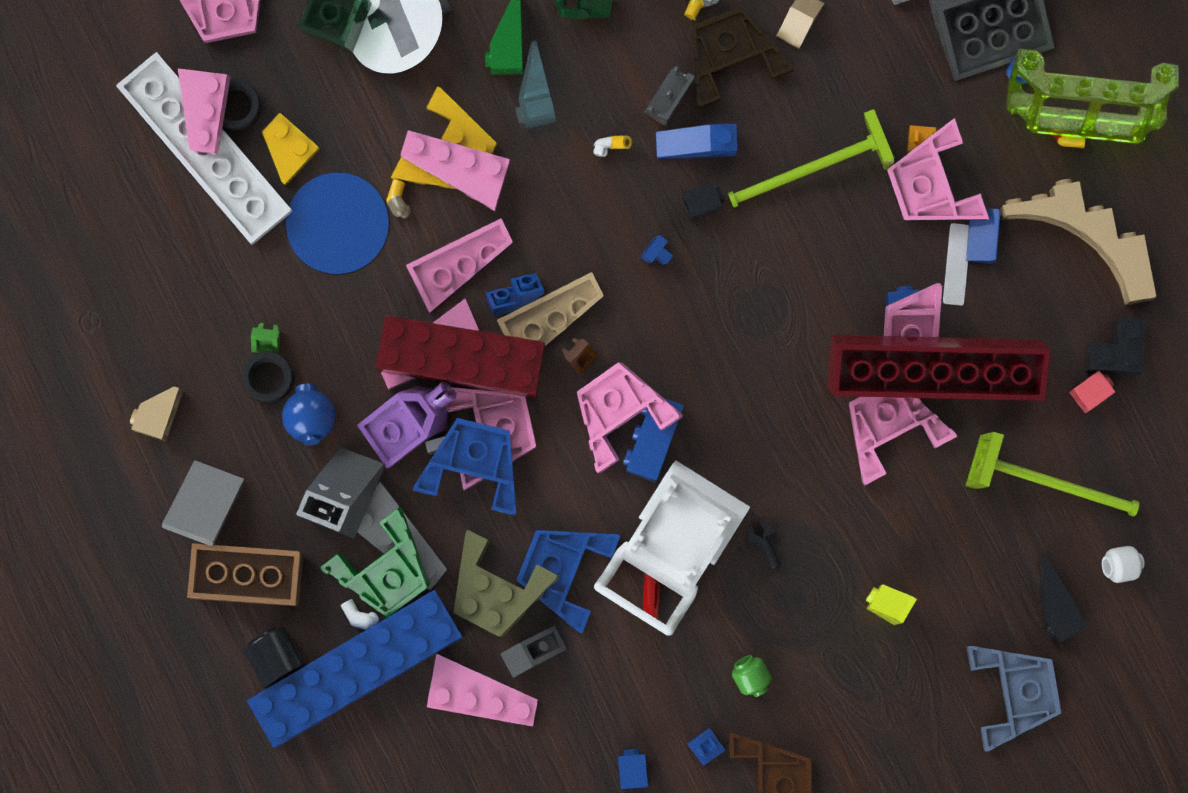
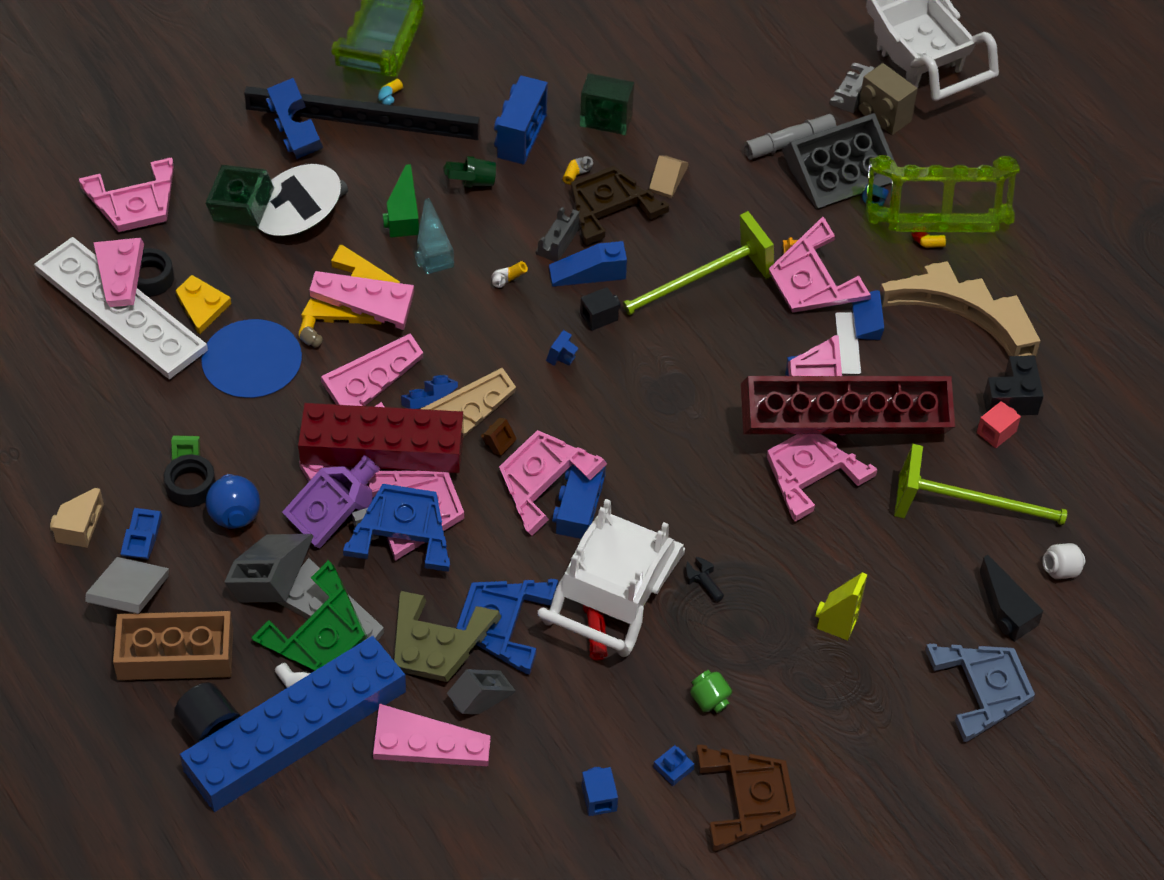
camera: 10 degrees left, 30 degrees down
(219, 435) = (142, 533): none -> blue slope

